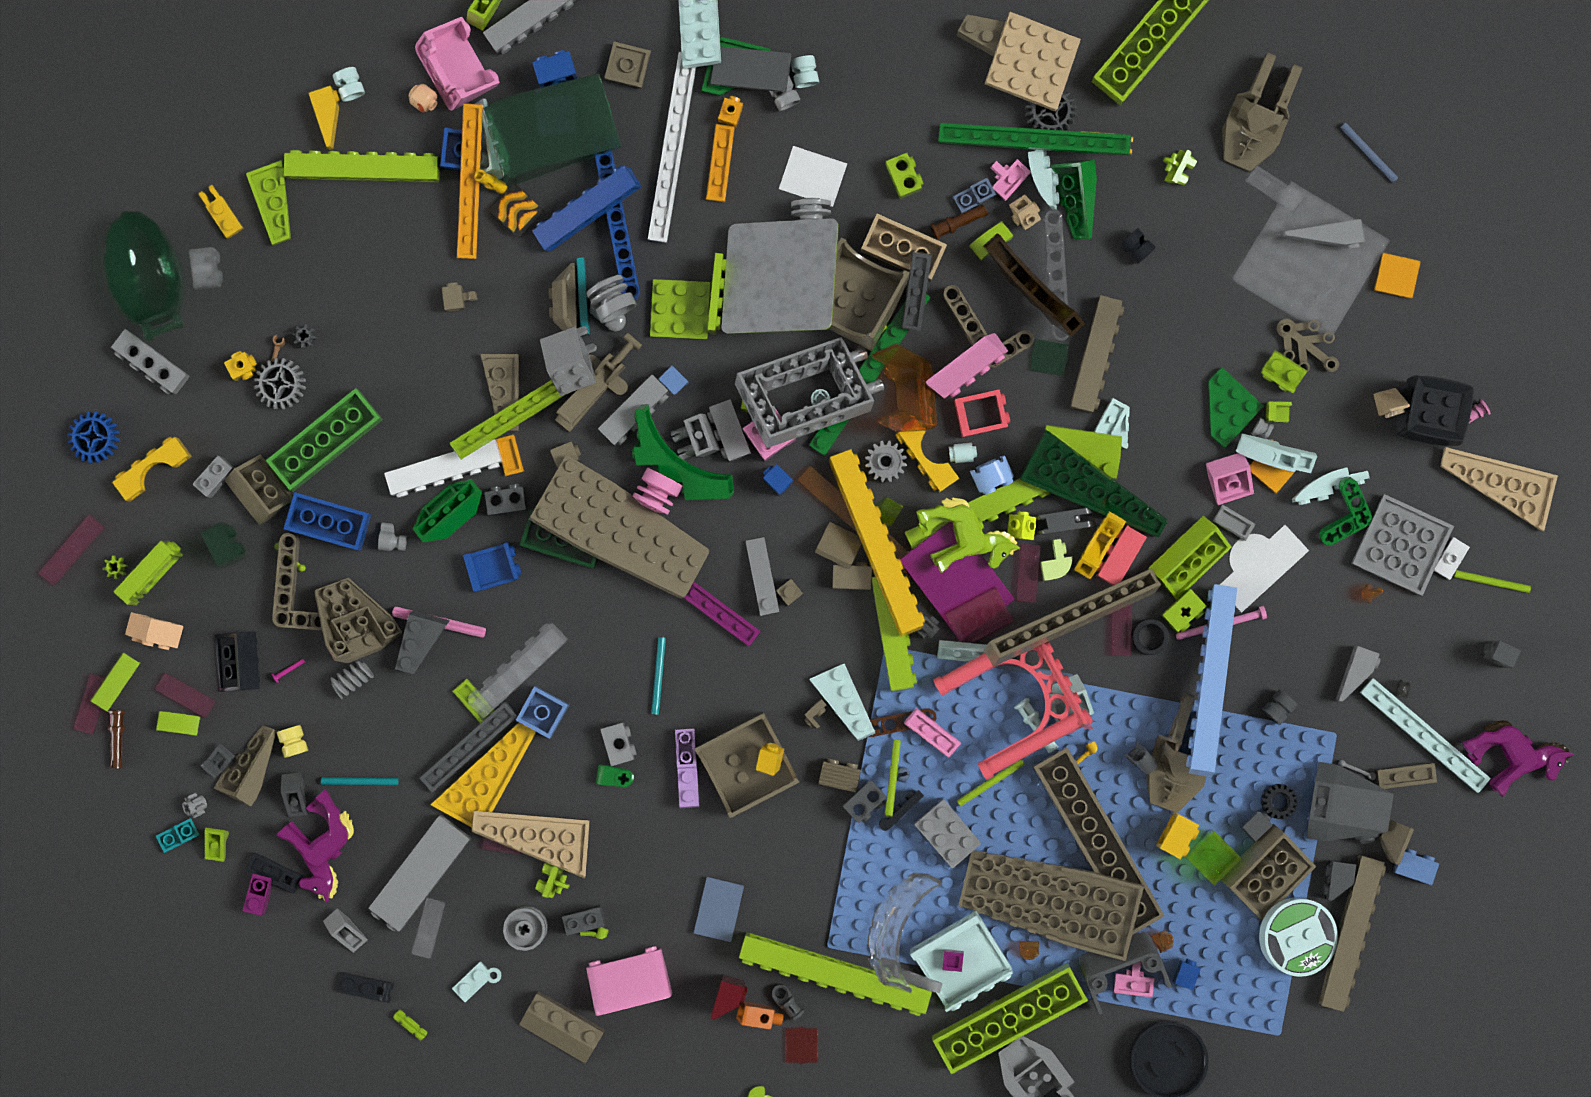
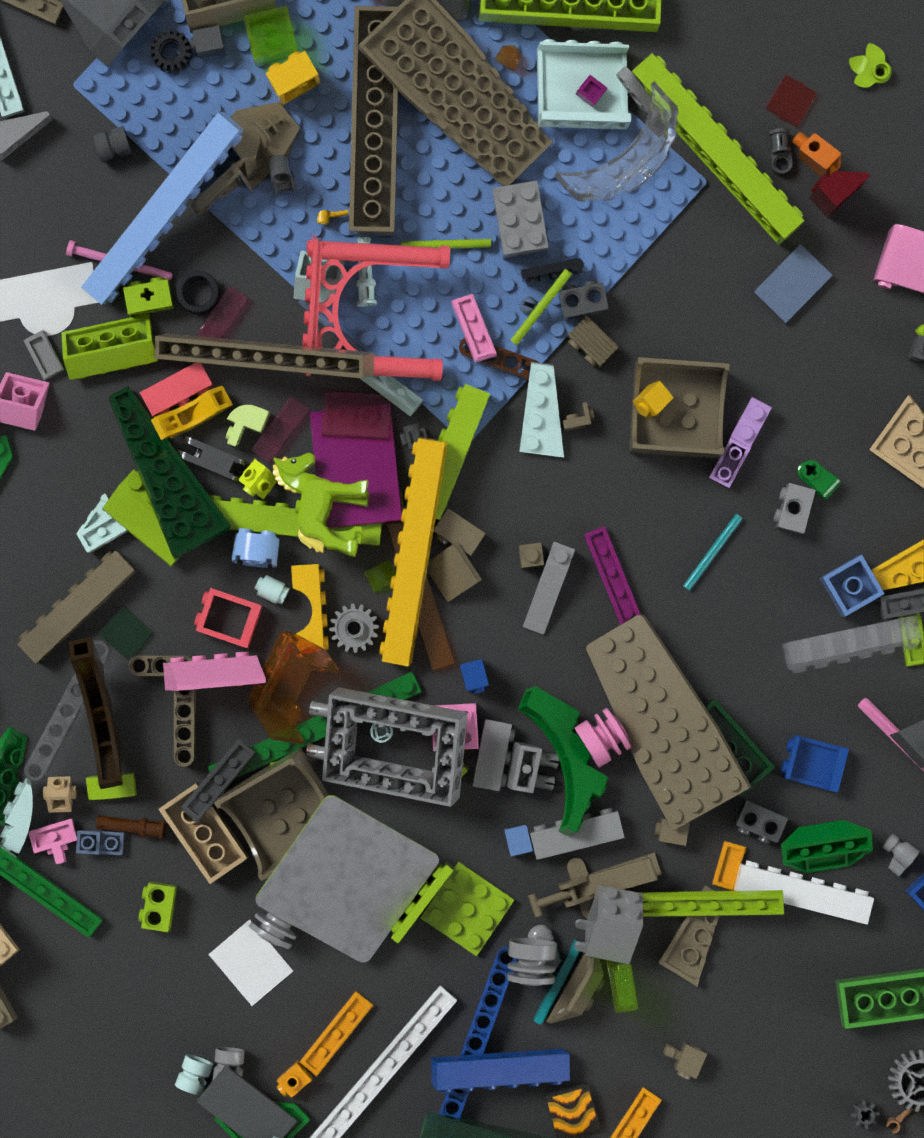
camera: 150 degrees left, 0 degrees up
(535, 320) = (621, 986): none -> clear neon green panel
(1371, 775) = (64, 23): light grey hinge -> none

